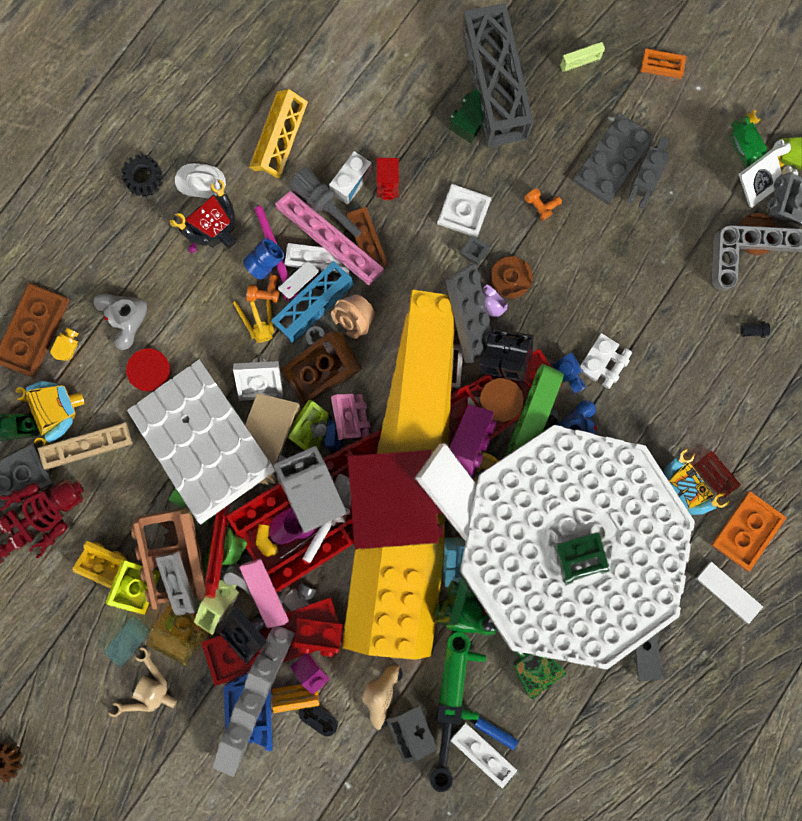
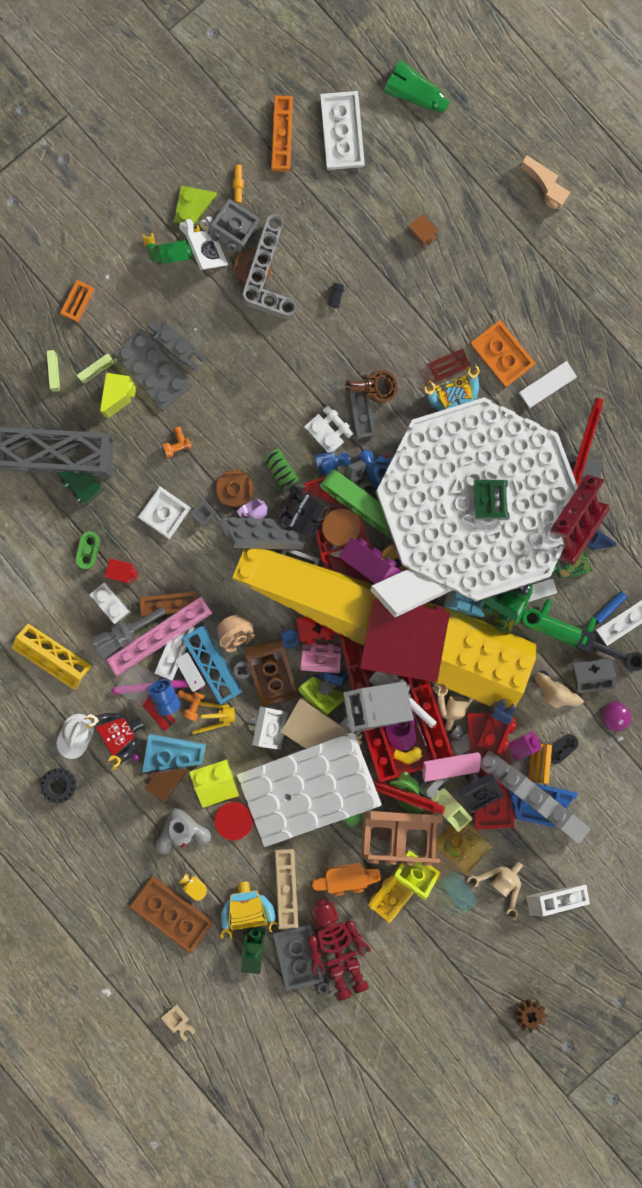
camera: 70 degrees left, 5 degrees up
(112, 509) = (346, 878): none -> orange hinge
(141, 759) = (557, 900): none -> white slope
(169, 283) = (165, 782): none -> reddish brown slope
(177, 583) = (424, 837): light grey plate -> none
(184, 337) = (214, 783): none -> neon yellow slope
(206, 282) = (171, 752): none -> medium azure wing
(238, 268) = (163, 721): none -> red sticker
(271, 226) = (136, 684): none -> clear piece
(334, 582) = (455, 708): none -> tan piece
(340, 636) = (502, 712): none -> dark blue tile
(364, 379) = (290, 638): none -> blue tile
(370, 397) = (305, 634): none -> red brick
(372, 773) = (616, 716): none -> magenta hair
(401, 139) = (87, 550): none -> bright green plate
(494, 648) = (543, 589): none -> white sticker
(546, 320) = (281, 470): none -> bright green brick
(568, 400) = (355, 471): none -> dark grey plate
(569, 693) = (600, 541): none -> dark blue tile
(577, 123) = (116, 393): none -> neon yellow slope
(587, 681) = (580, 519): none -> dark red fence
(597, 98) = (95, 369): none -> yellowish green tile
(638, 390) = (362, 415): none -> dark grey plate
(666, 390) = (370, 386): none -> reddish brown pin
(675, 653) = (587, 439): none -> red piece

